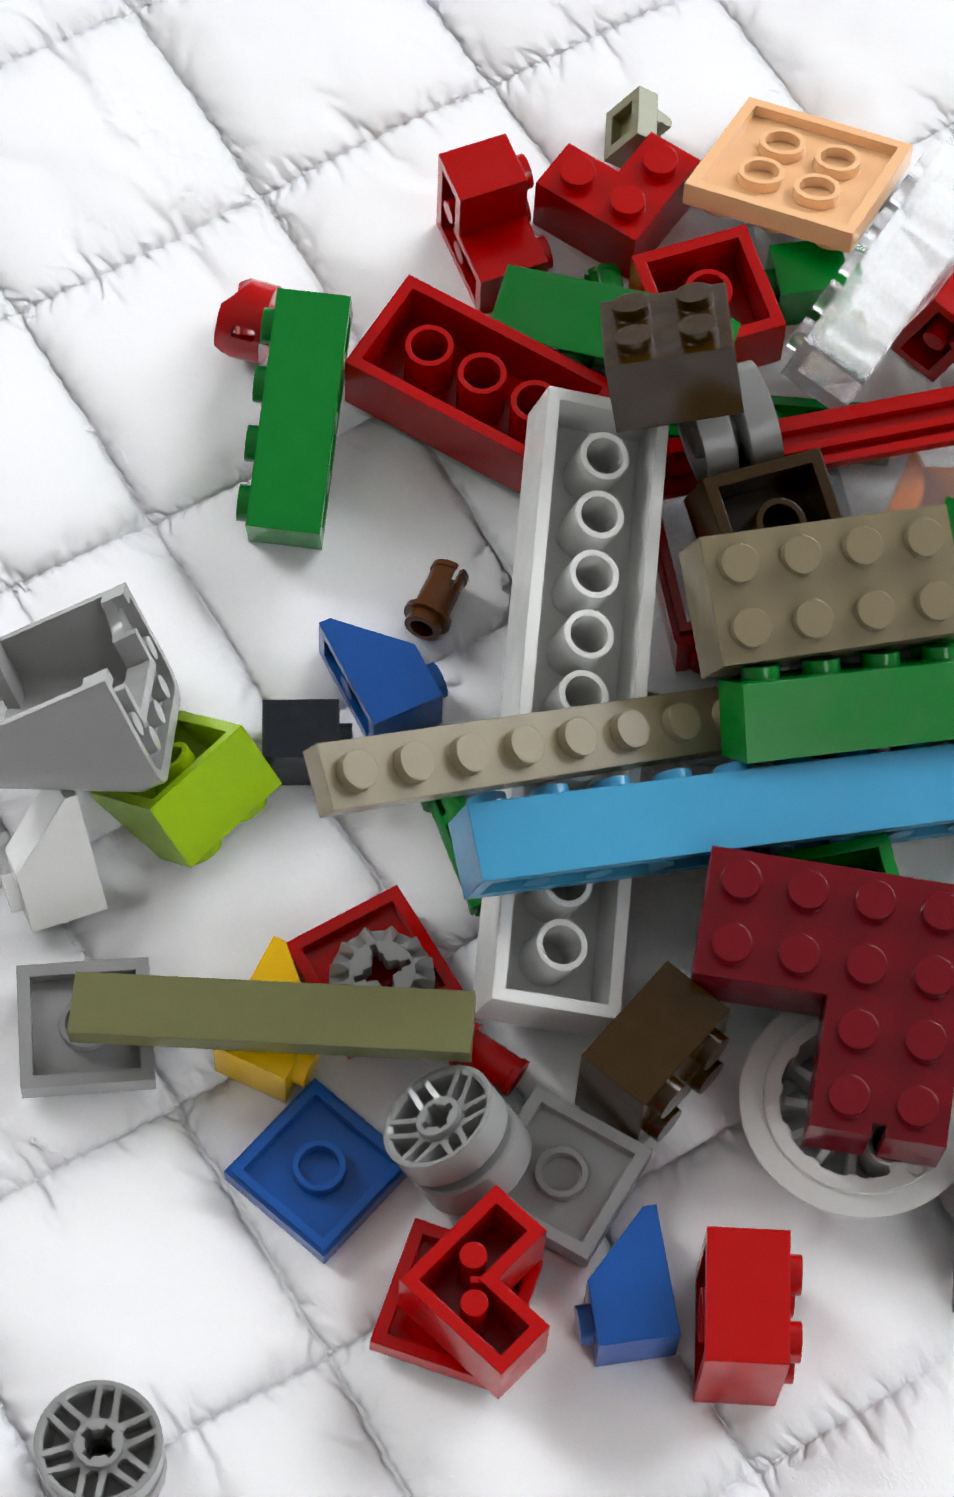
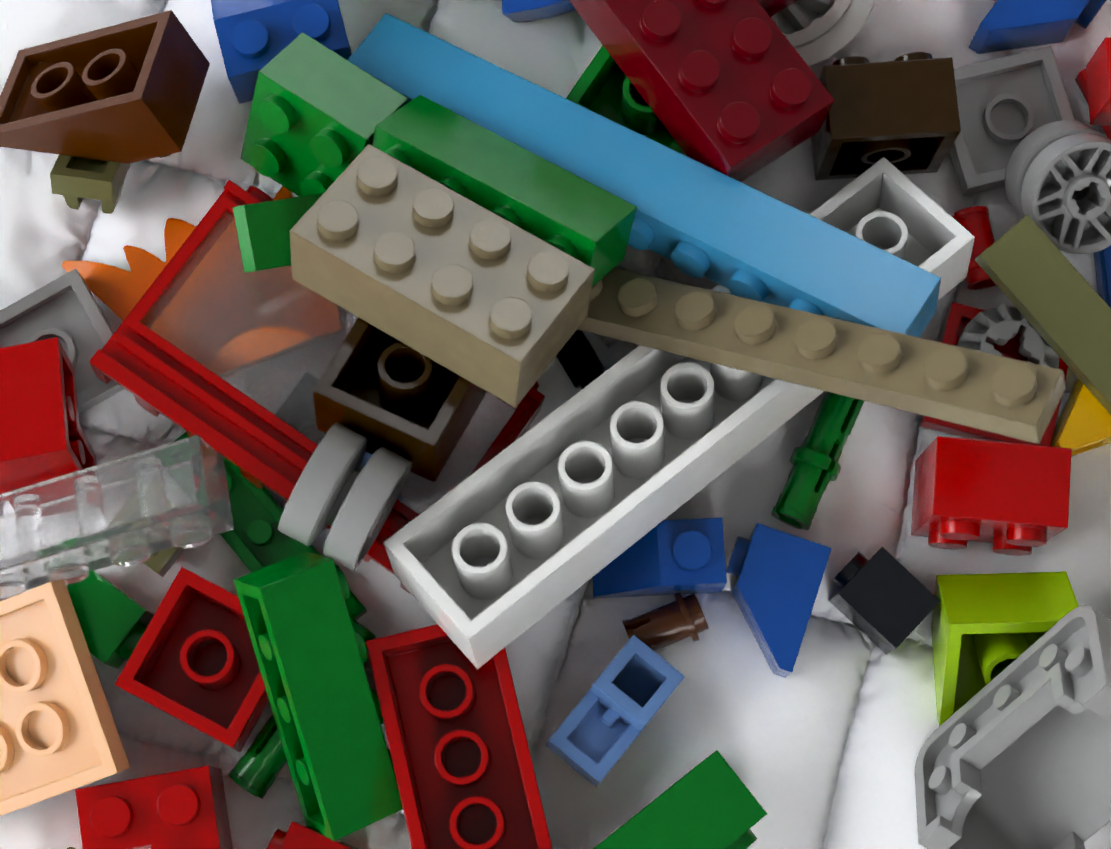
camera: 130 degrees left, 15 degrees up
(294, 865) = (990, 494): none -> red brick
(412, 505) = (614, 710): none -> medium blue brick
(470, 639) = (668, 560): none -> blue slope
(670, 356) = (361, 553): dark brown brick -> none

